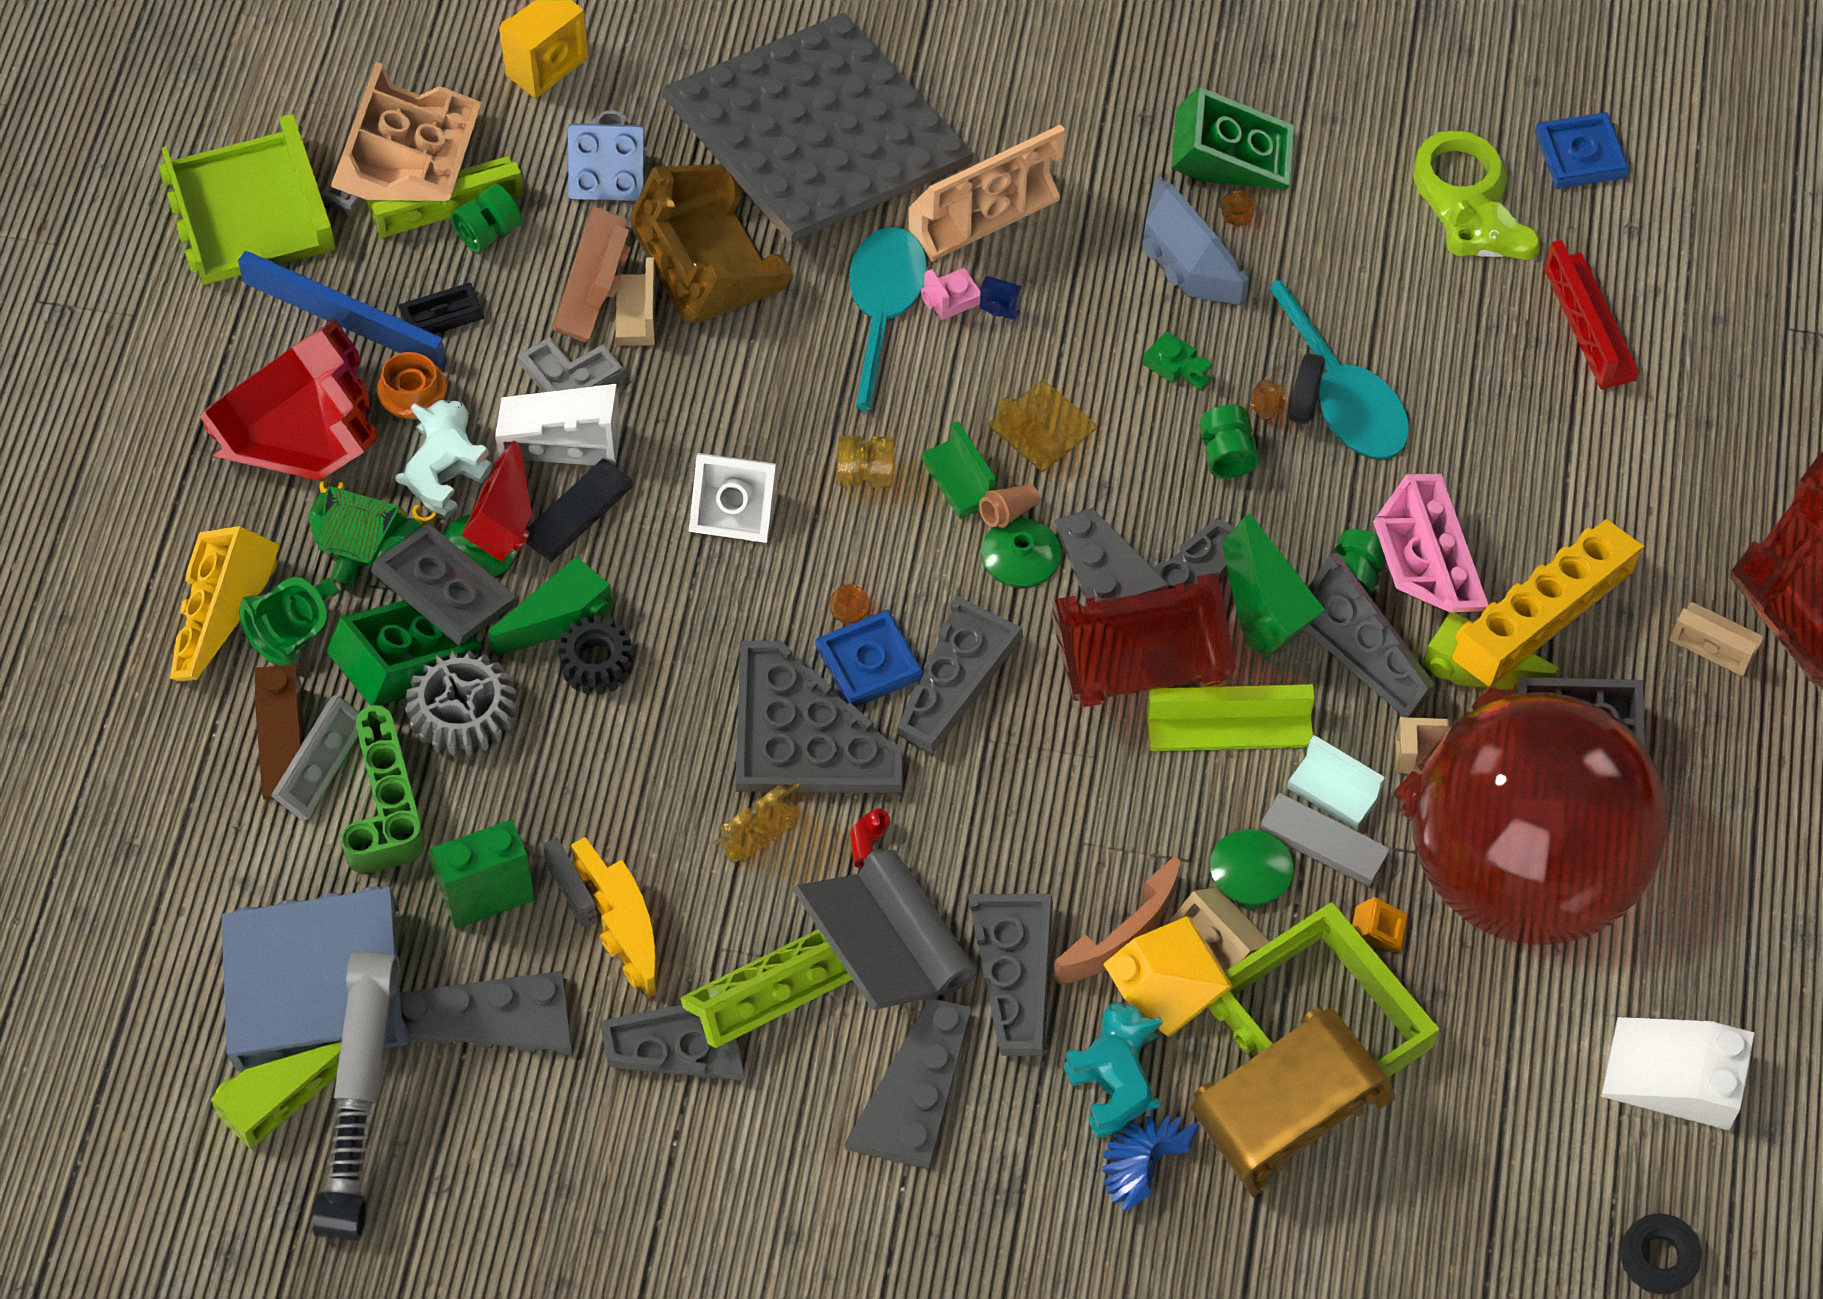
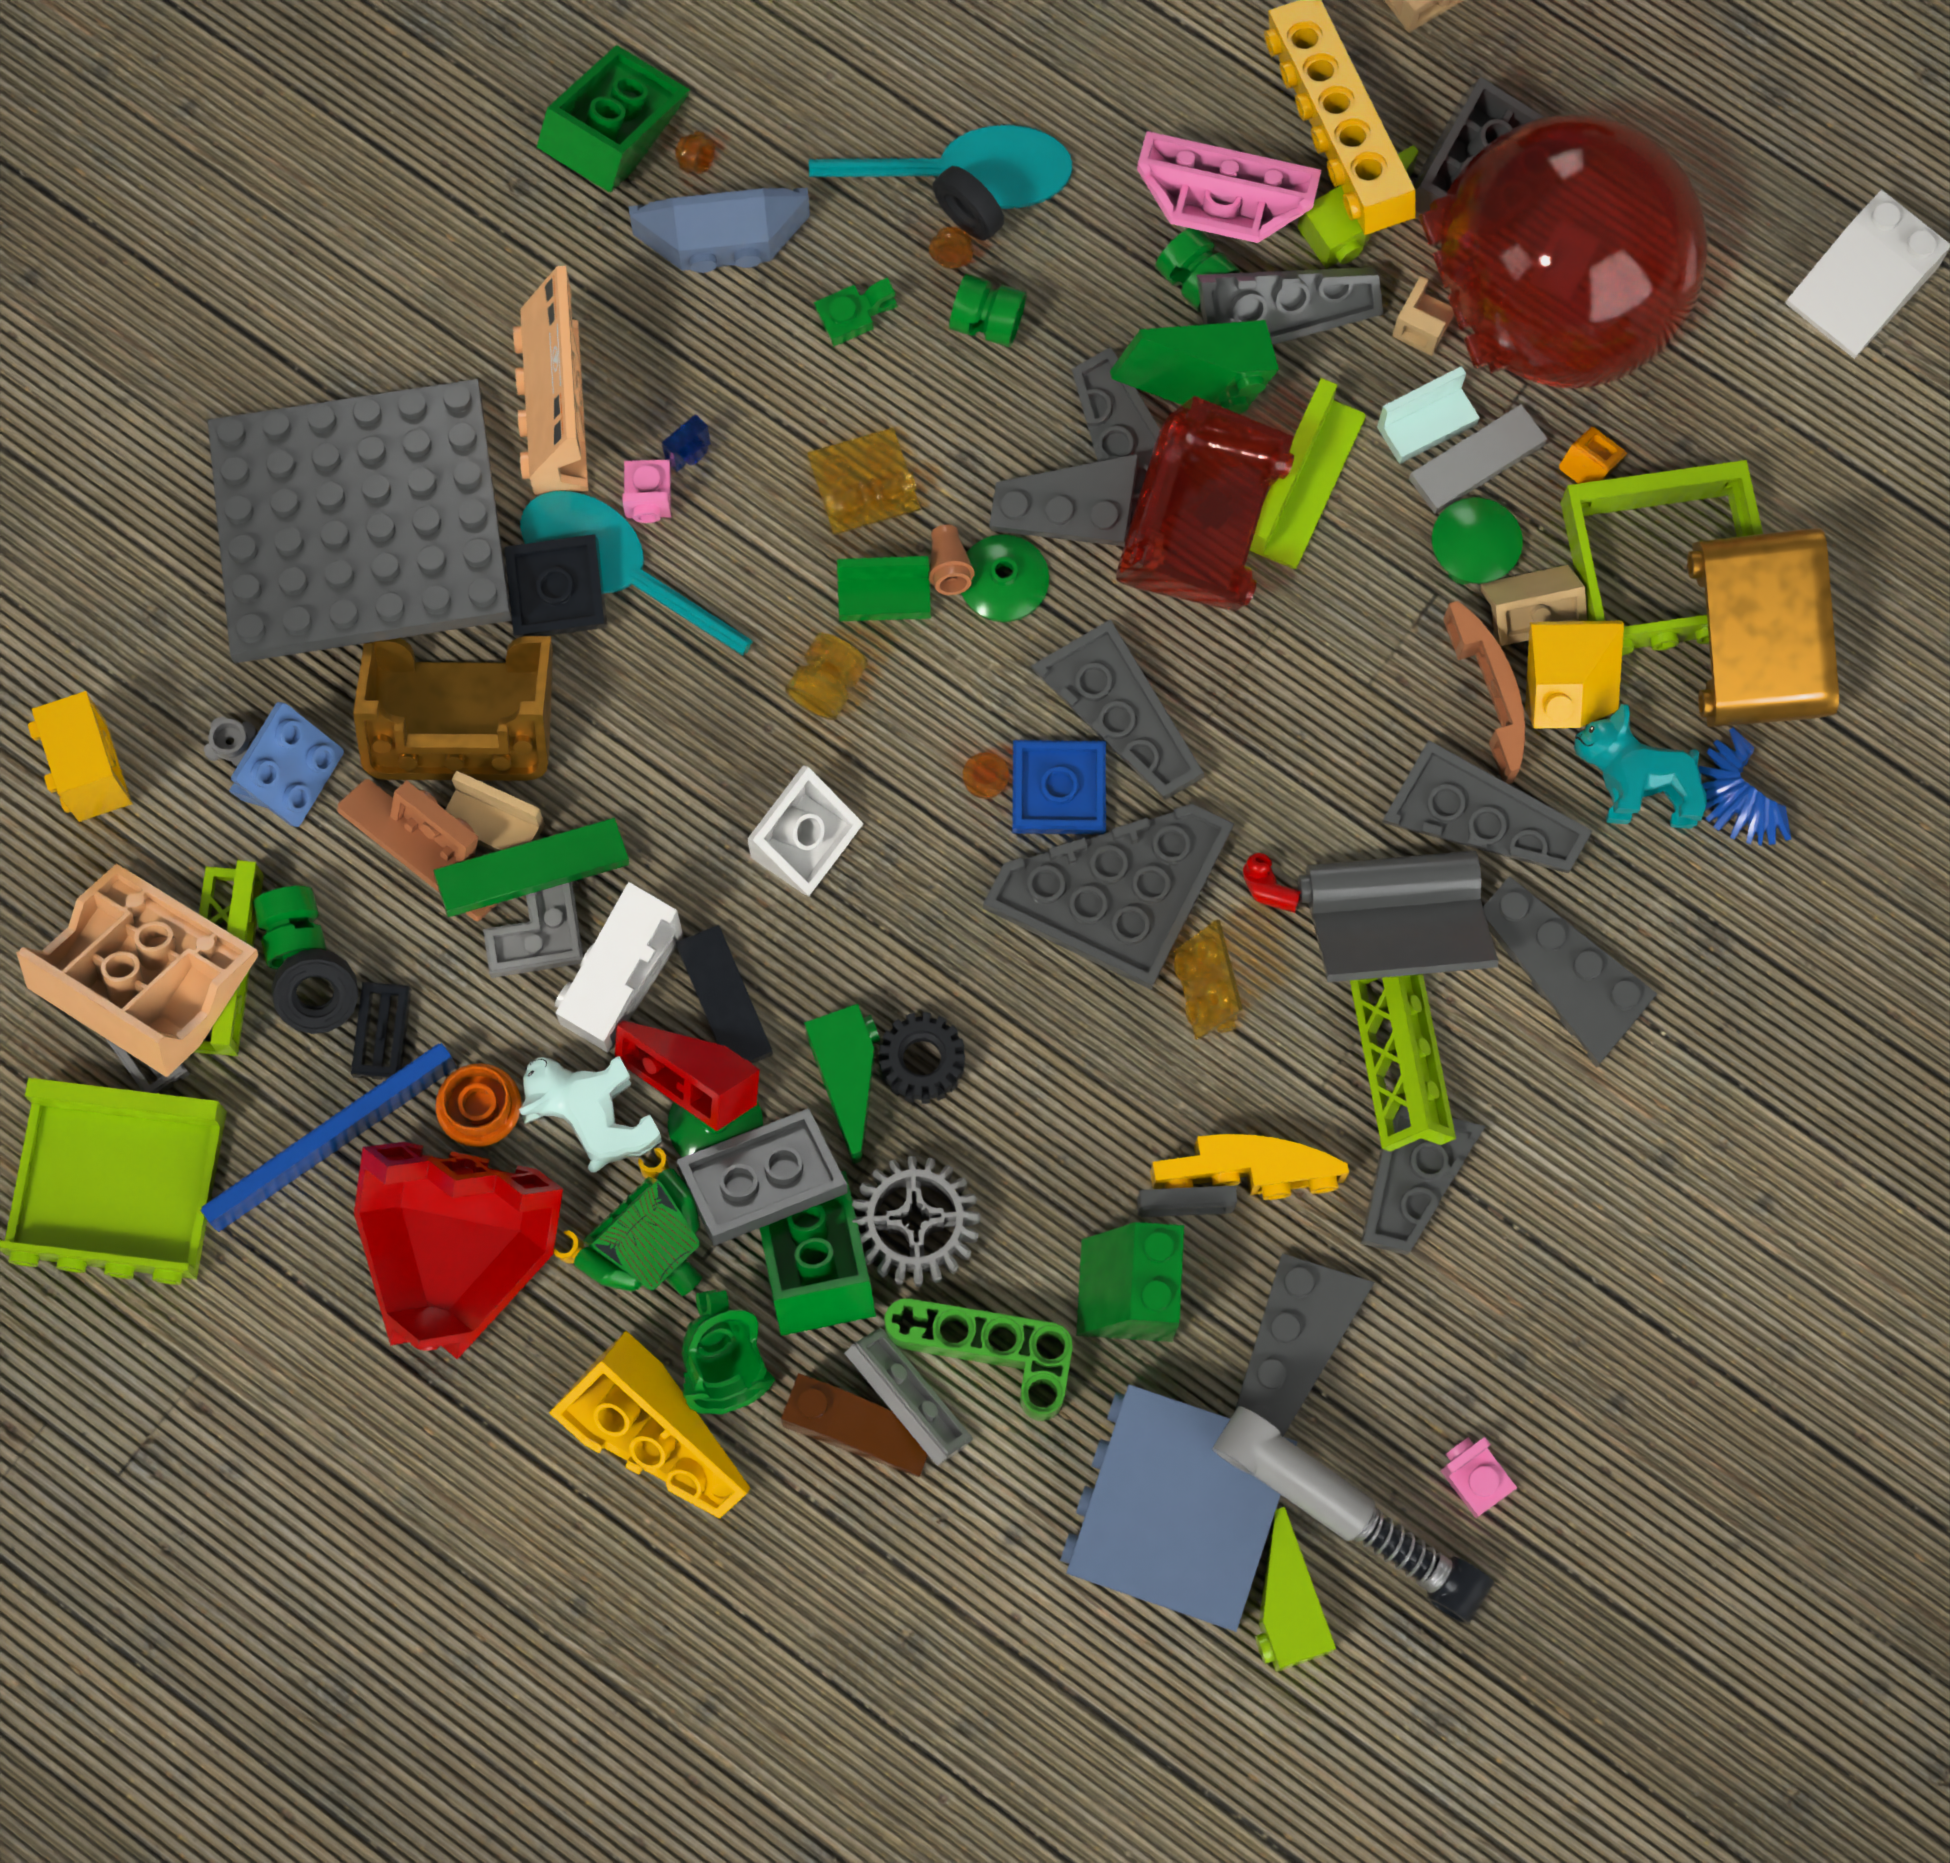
camera: 65 degrees left, 15 degrees up
(425, 249) = (312, 964): none -> black tyre
(445, 1193) = (1477, 1476): none -> bright pink bracket
(610, 341) = (531, 867): none -> green tile
(838, 265) = (556, 586): none -> black plate

